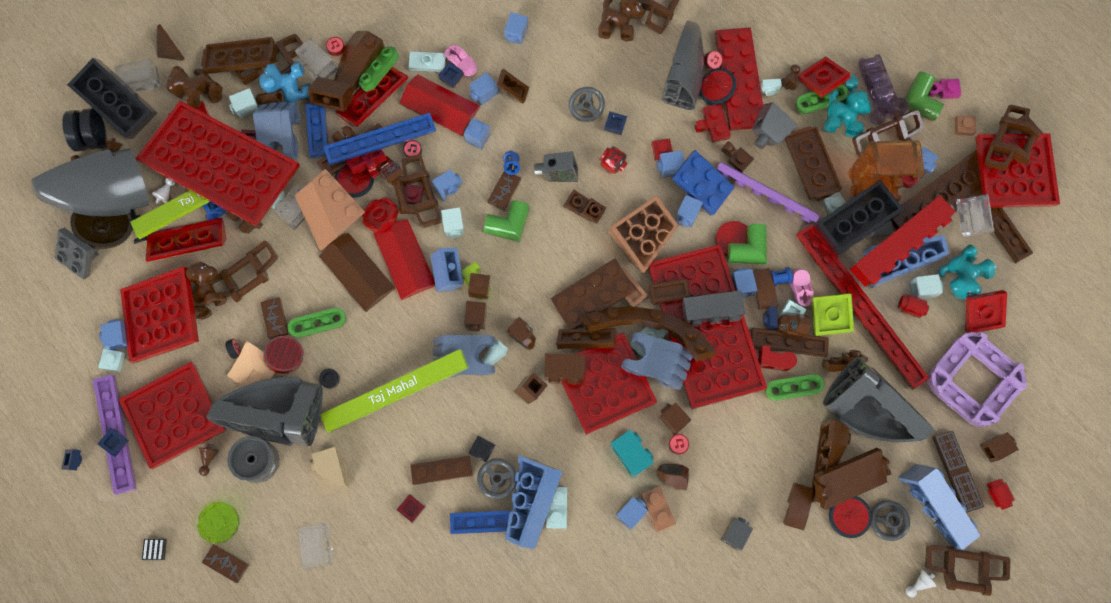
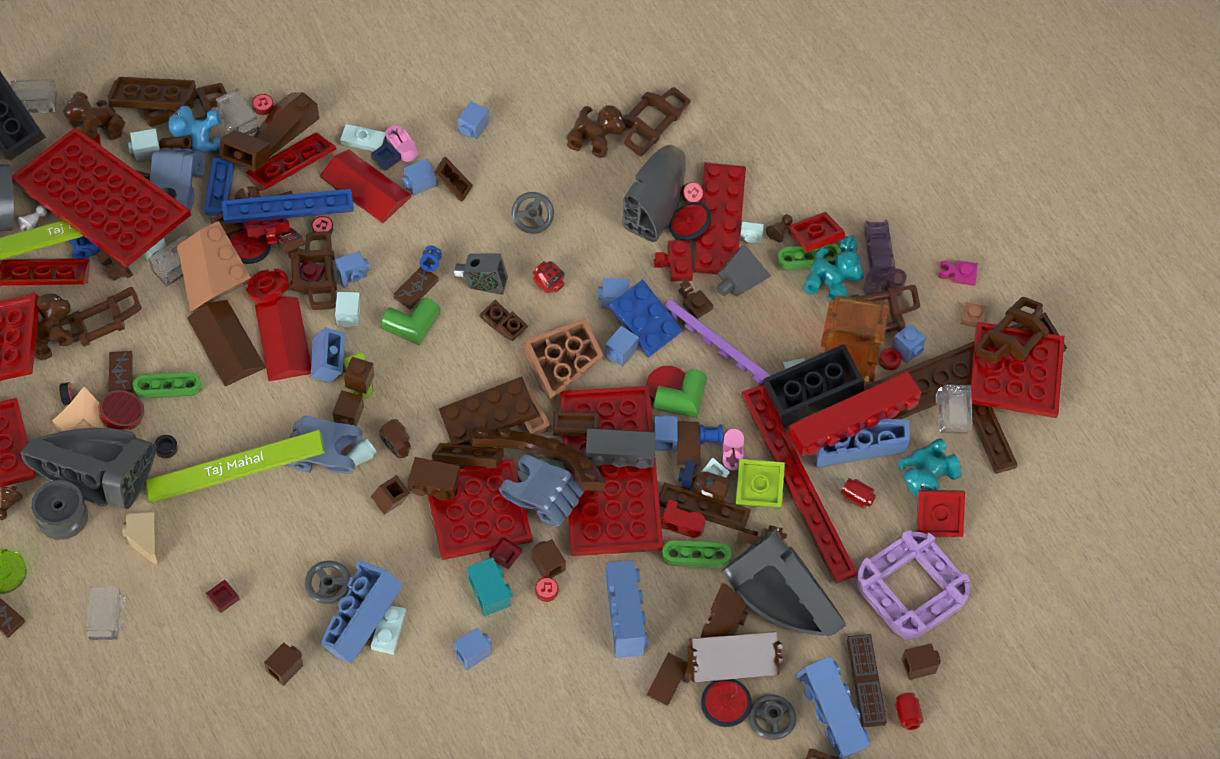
camera: 10 degrees right, 15 degrees down
(166, 47) = (74, 72): reddish brown slope -> none
(378, 68) = (305, 135): bright green plate -> none
(441, 470) = (267, 565): reddish brown plate -> none
(477, 133) = (399, 221): medium blue brick -> none
(478, 560) = (284, 663): none -> reddish brown brick
(479, 522) = (294, 625): blue plate -> none
(481, 449) = (319, 551): black tile -> none
(615, 123) = (561, 239): dark blue plate -> none
(638, 421) = (505, 553): none -> dark red plate
(658, 509) = (505, 652): nougat plate -> none
(660, 147) = (609, 272): red plate -> none
(674, 475) = (532, 619): reddish brown rock -> none
(737, 533) = (588, 693): dark grey brick -> none
(750, 450) = (625, 609): none -> medium blue wedge
(813, 163) = (780, 321): reddish brown brick -> none
(918, 97) = (924, 276): bright green brick -> none
(927, 286) = (880, 475): light aqua brick -> none

